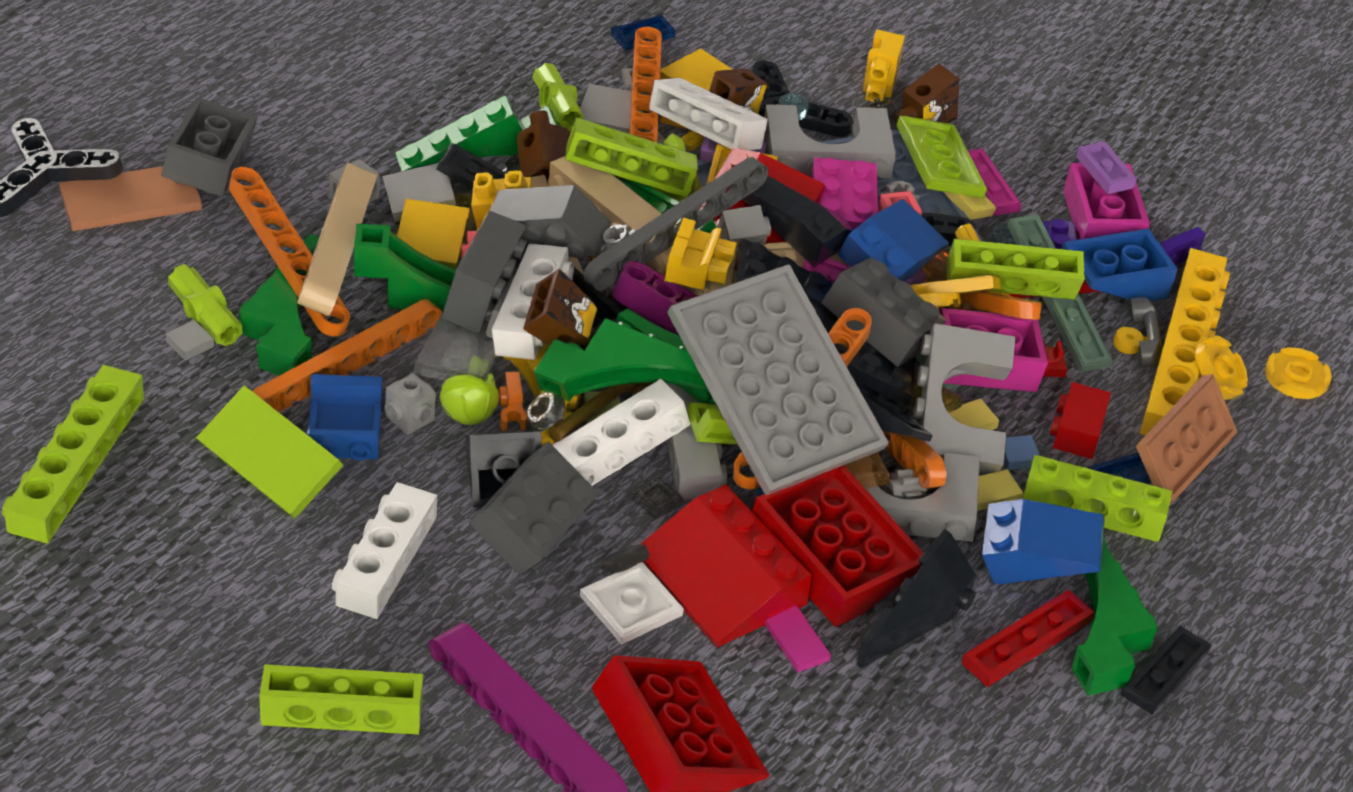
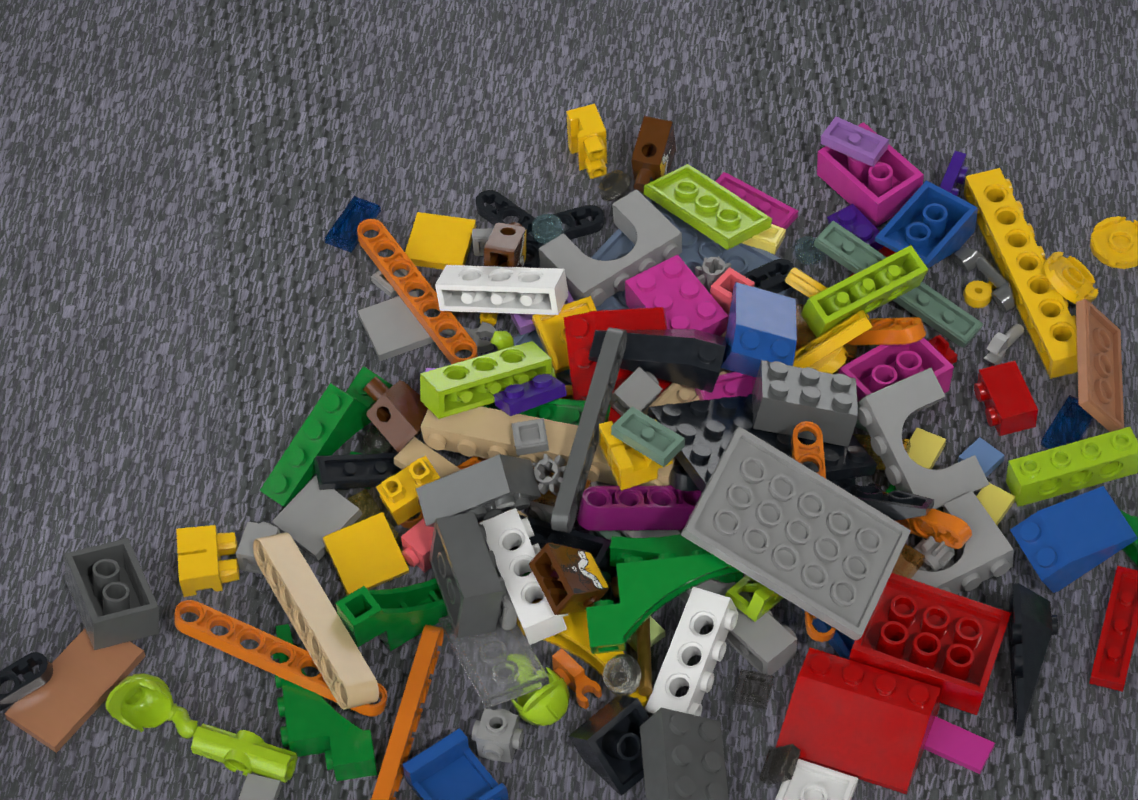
camera: 25 degrees left, 10 degrees up
(160, 227) = (148, 703): none -> lime piece
(304, 169) = (200, 559): none -> yellow hips
(557, 95) = (348, 343): lime piece -> none
(627, 209) = (530, 436): none -> light grey tile
(645, 182) = (529, 395): none -> dark purple plate
(711, 241) = (648, 436): none -> sand green plate
(1112, 379) = (1001, 343): none -> light grey bar

